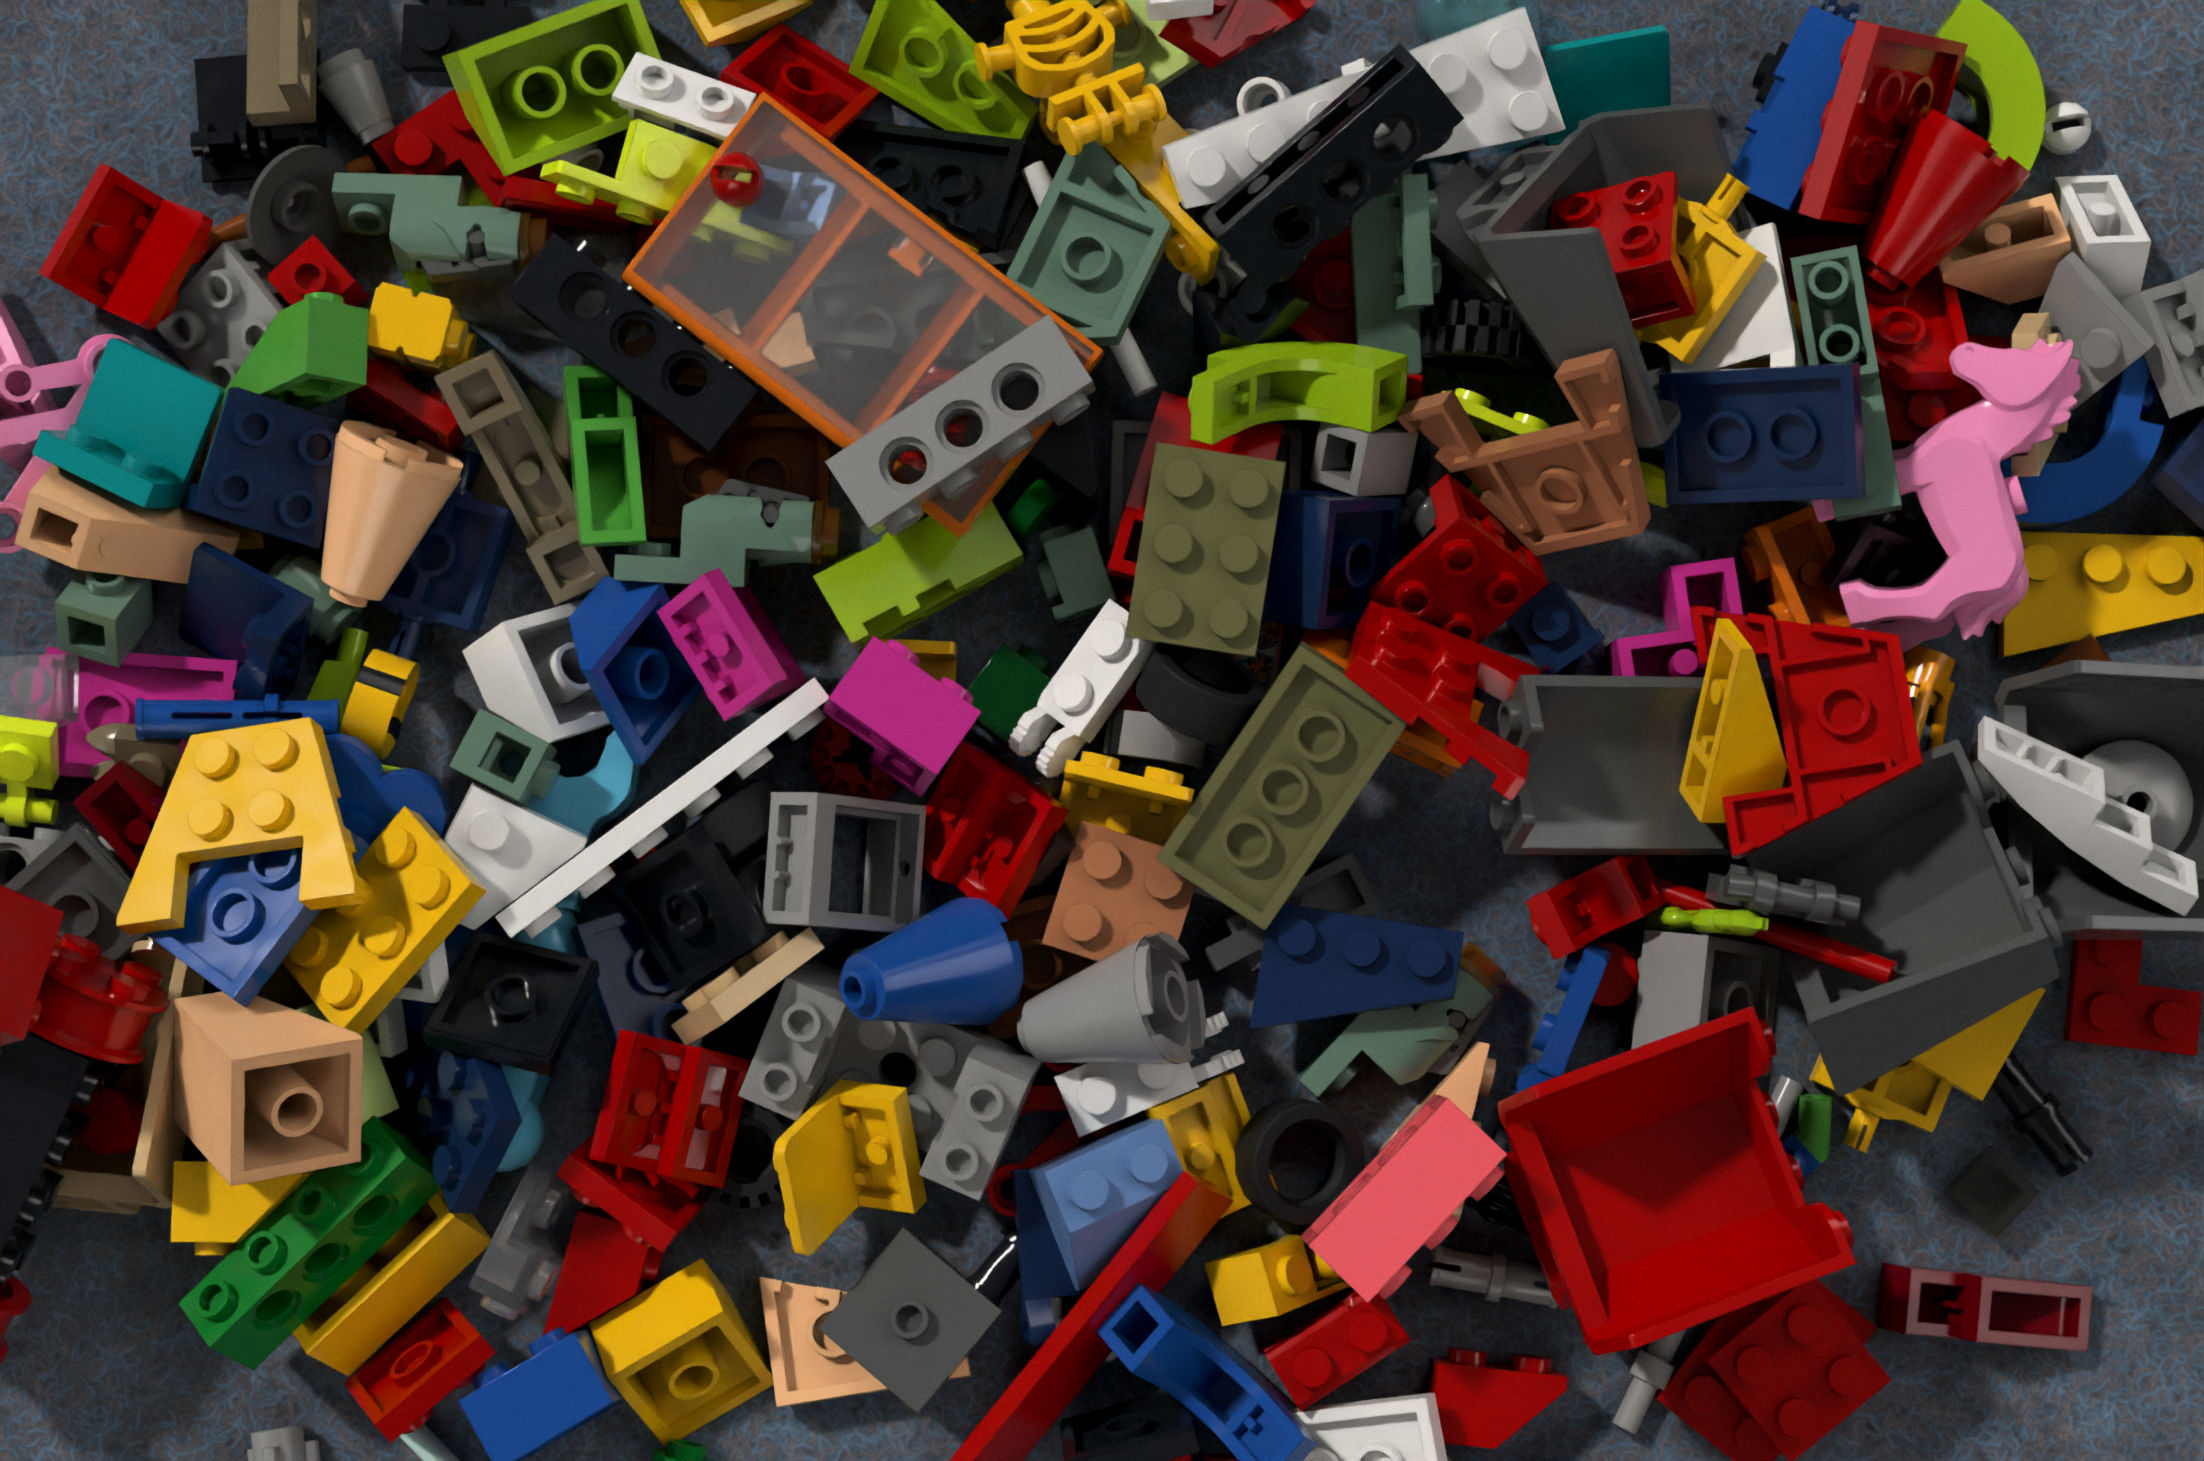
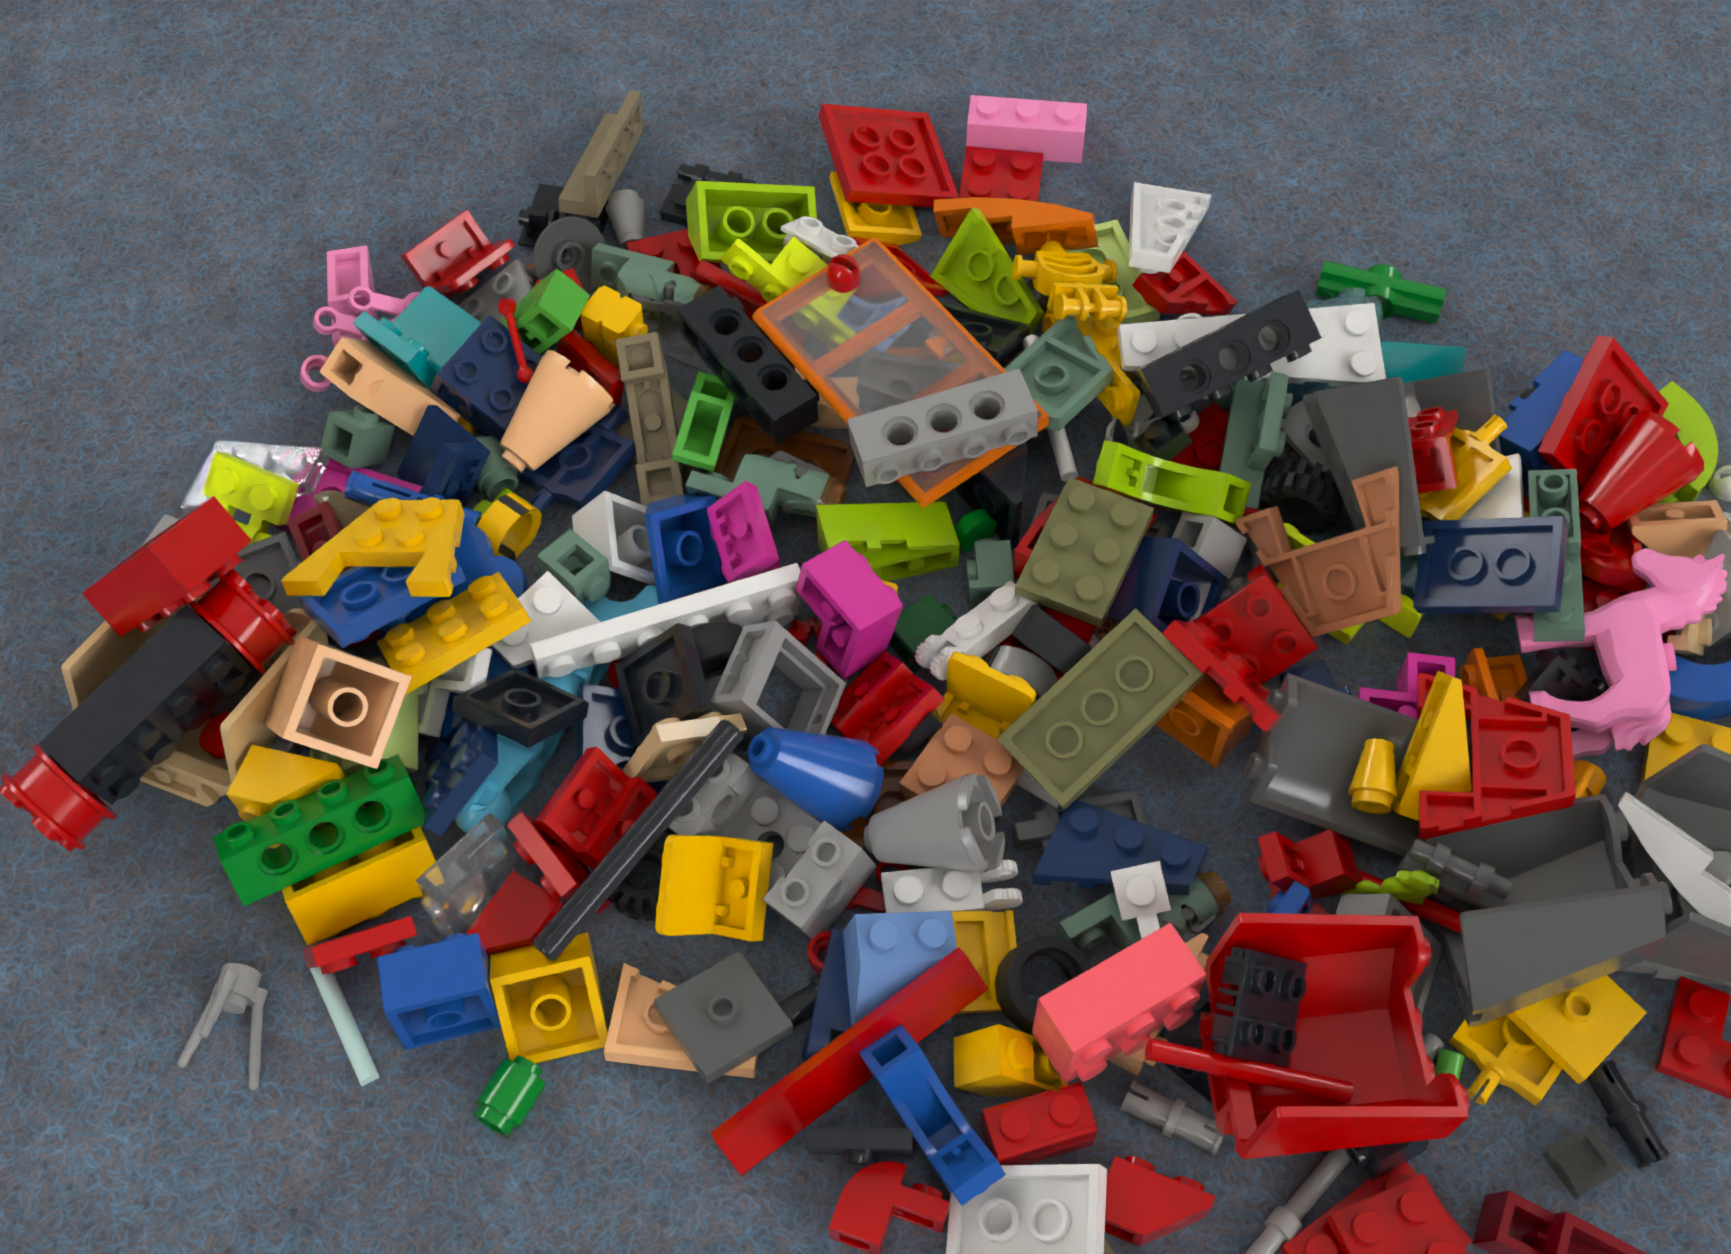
camera: 20 degrees right, 25 degrees down
(256, 373) = (508, 307): none -> red hinge
(736, 1146) = (637, 840): none -> black axle
(1399, 1030) = (1141, 895): none -> white plate
(1575, 1164) = (1264, 1007): none -> black hinge
(1580, 1243) = (1248, 1070): none -> red bar
(1660, 774) = (1374, 780): none -> yellow cone

